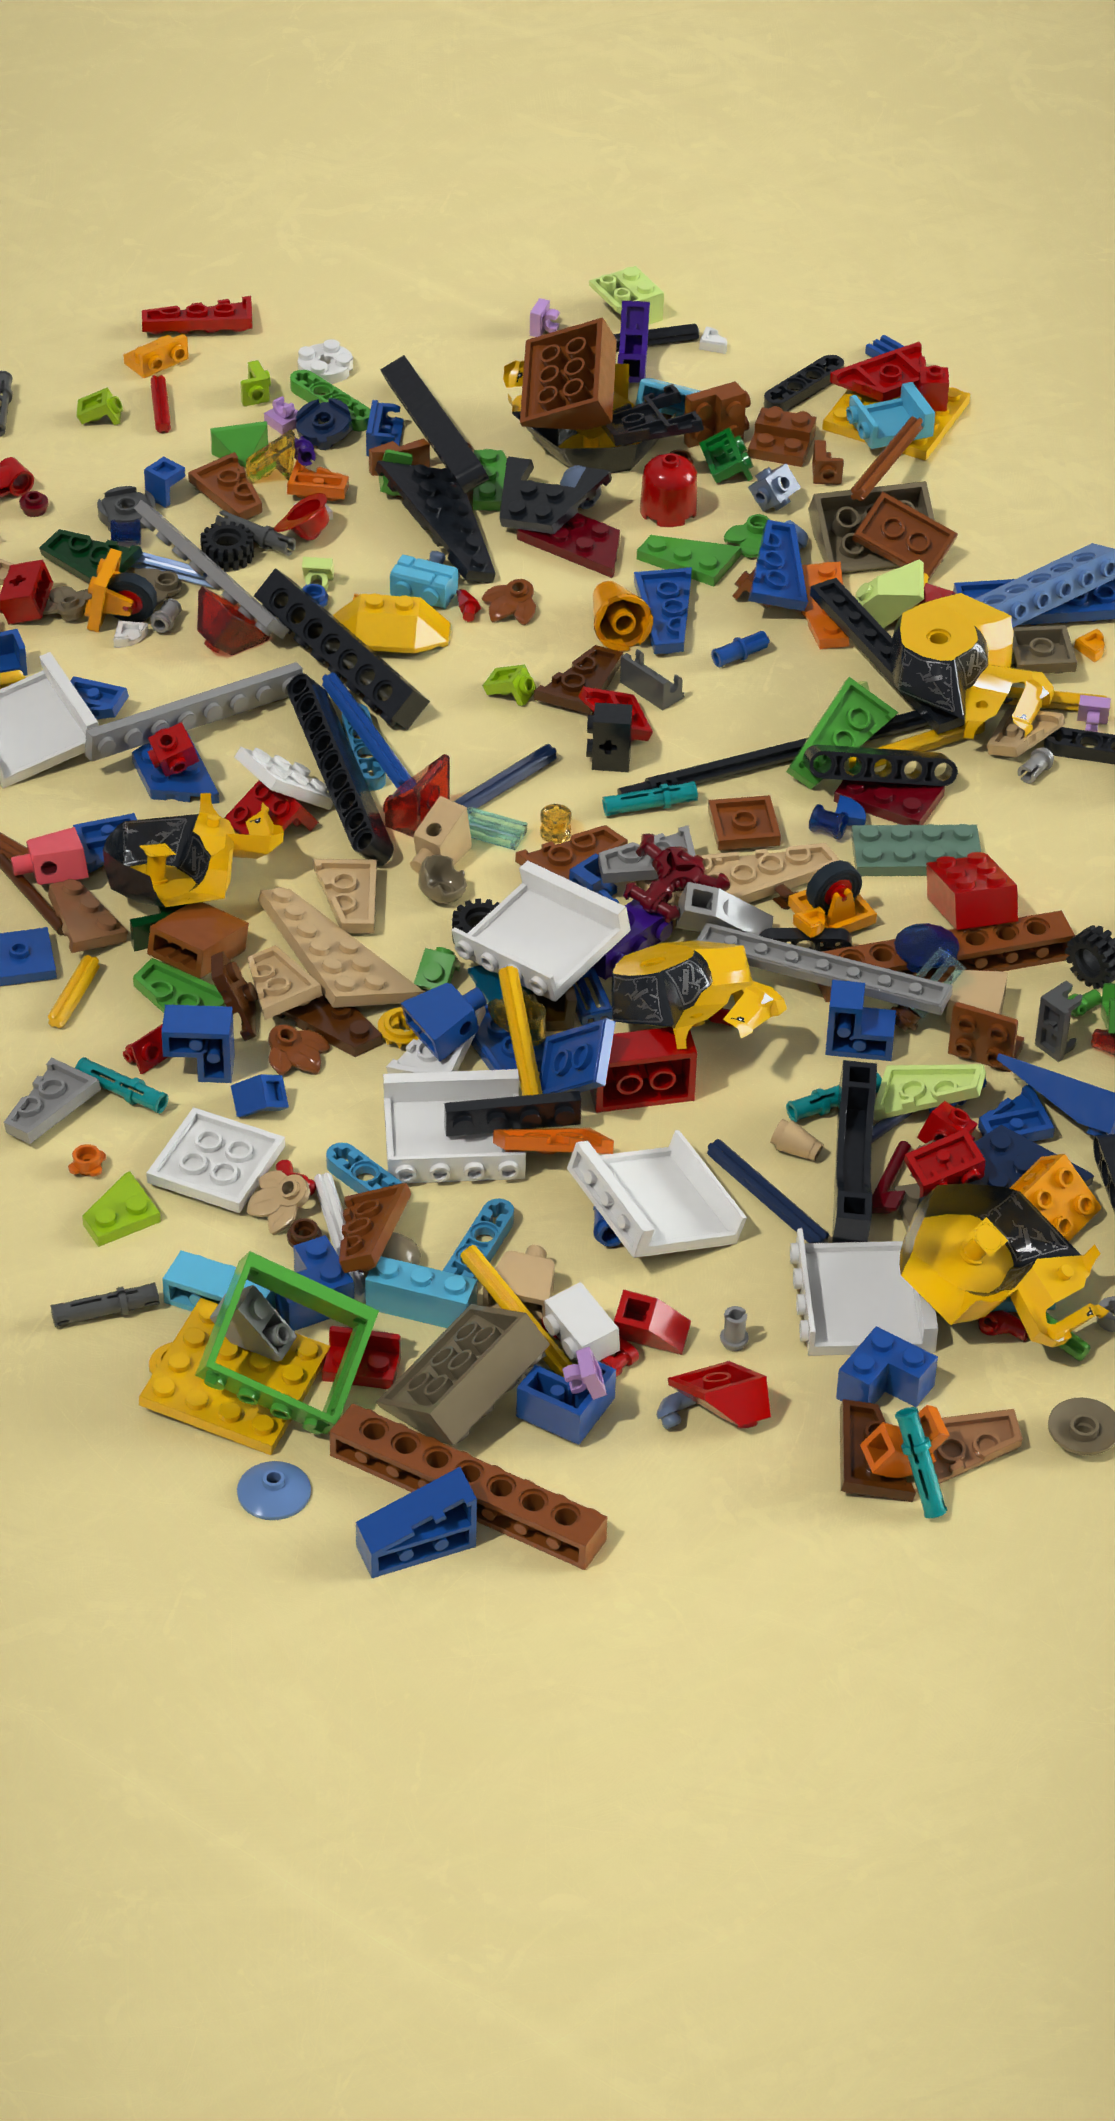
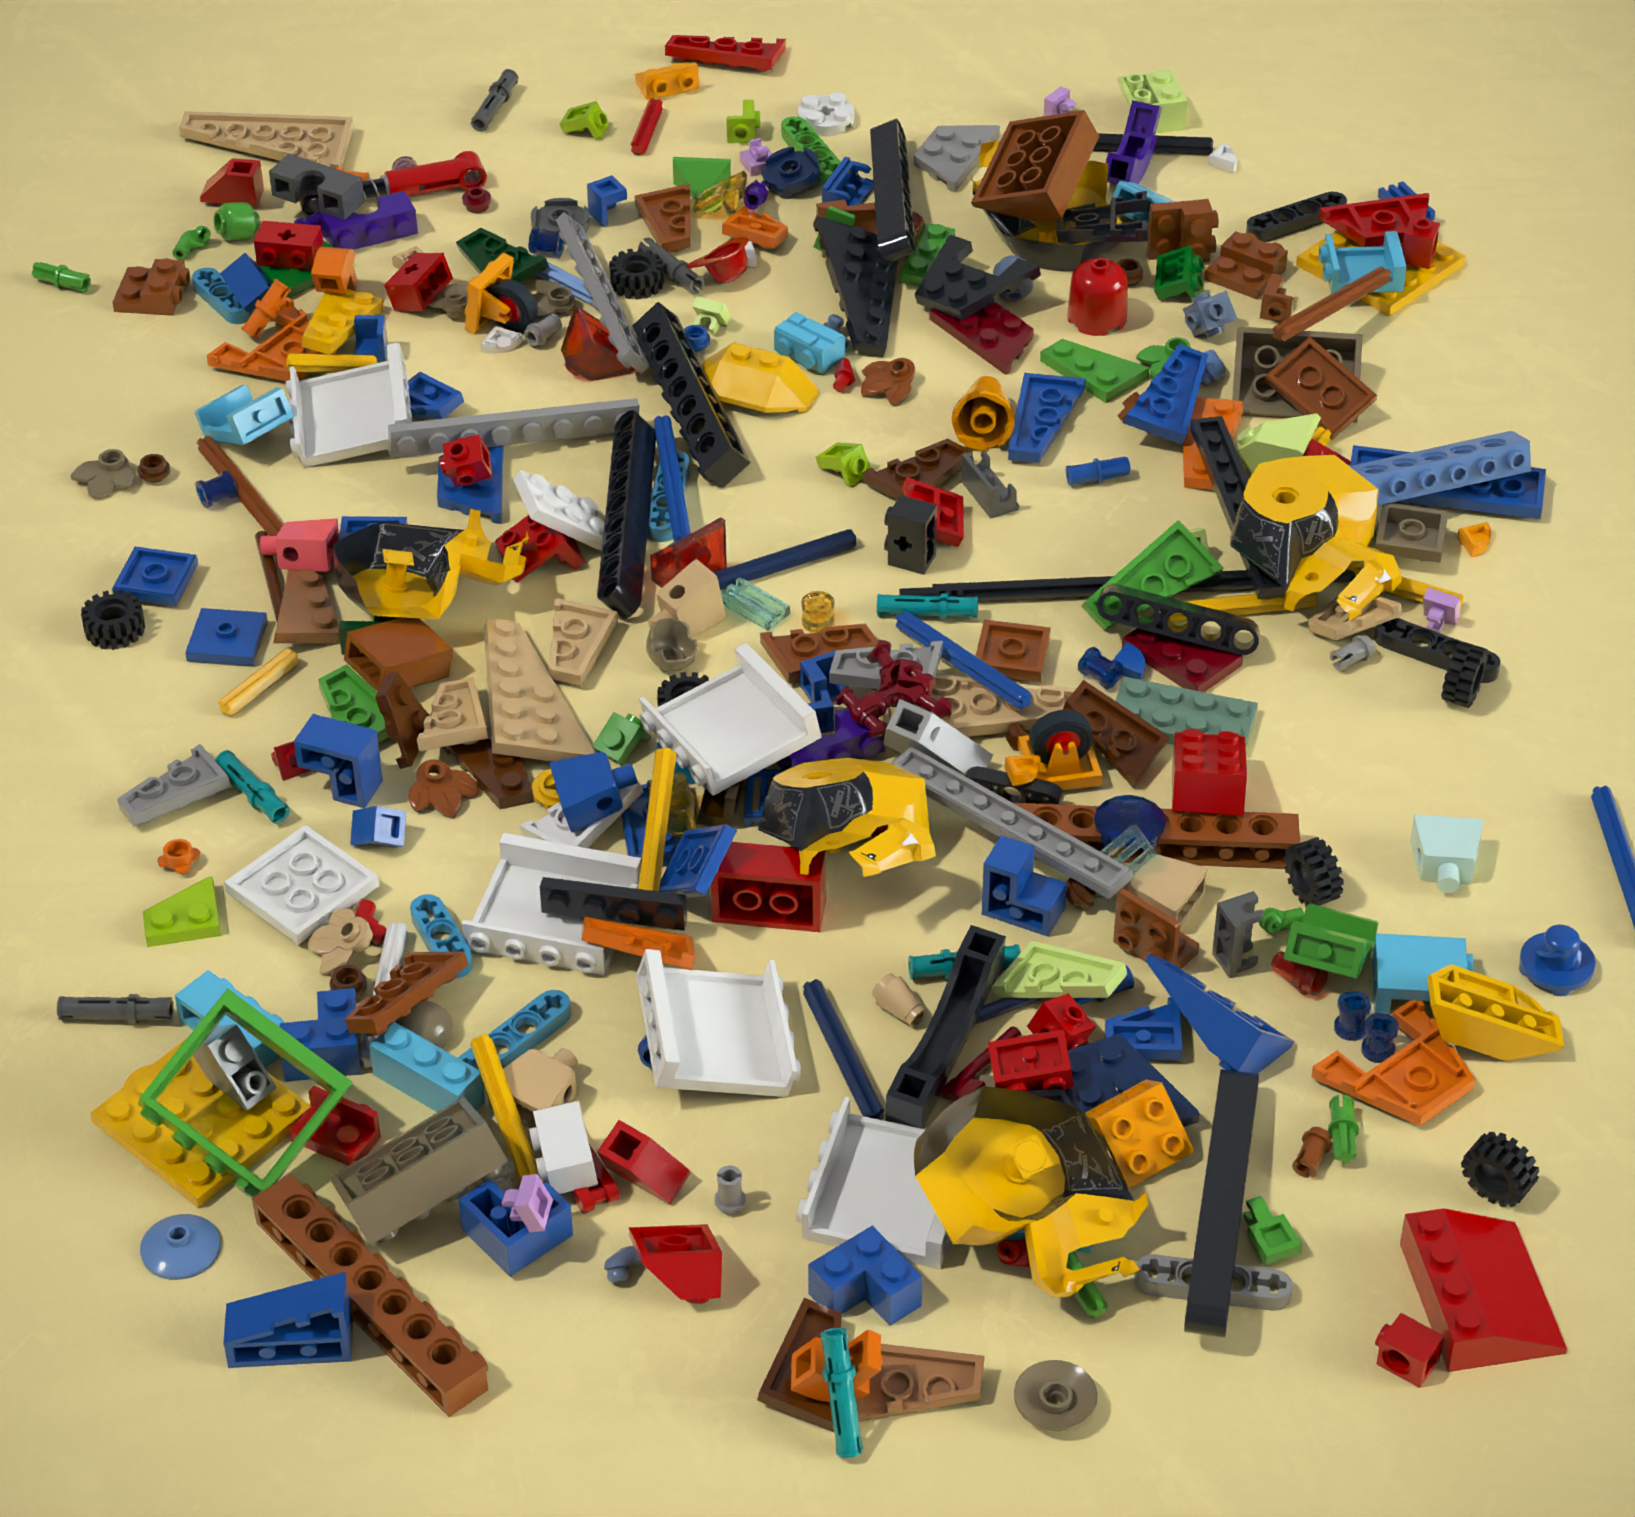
camera: 20 degrees right, 0 degrees up
(463, 377) = (954, 152): none -> light grey wing
(711, 839) = (965, 661): none -> blue axle
(882, 877) = (1117, 732): none -> reddish brown wing

